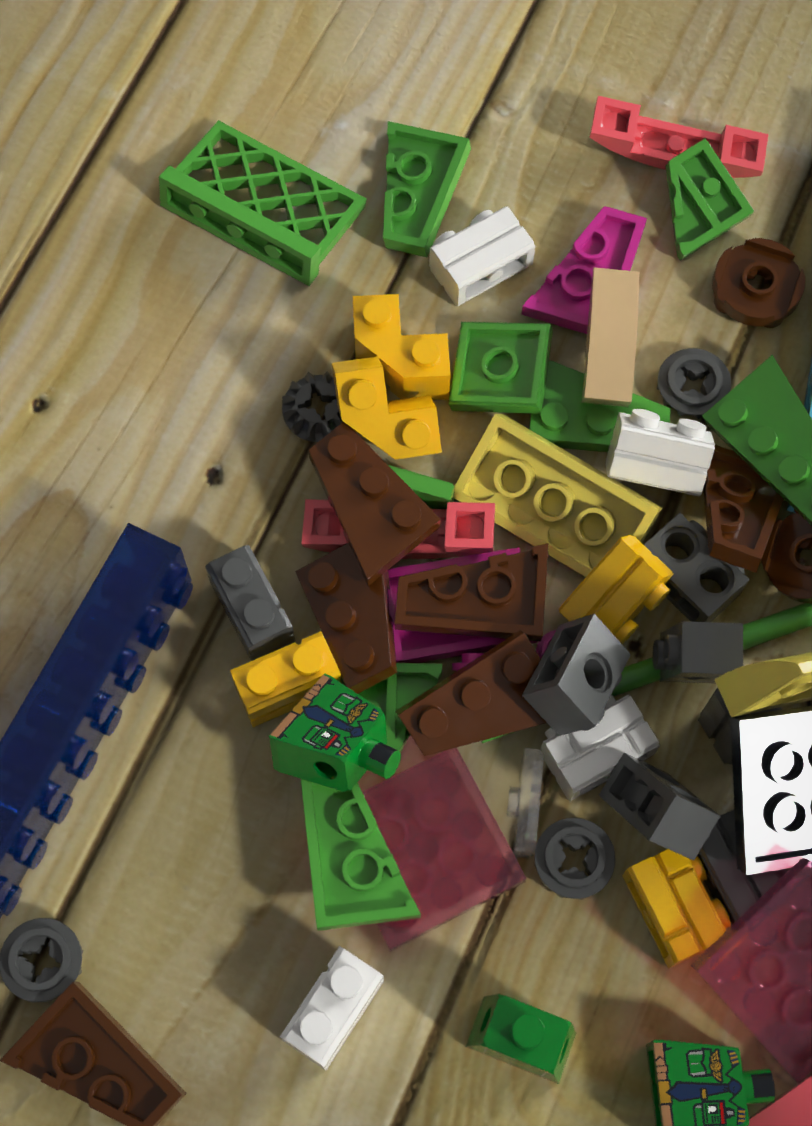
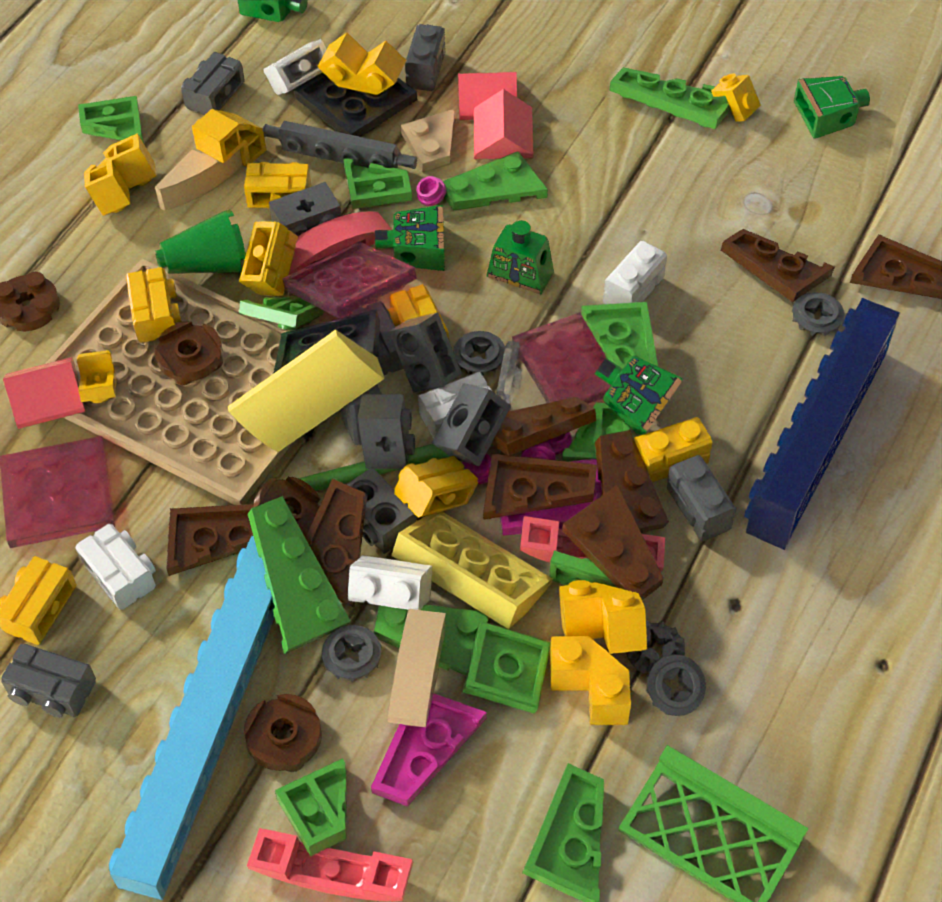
camera: 175 degrees left, 15 degrees down
(288, 340) = (690, 678): none -> dark grey gear
(481, 254) = (519, 762): white brick -> none

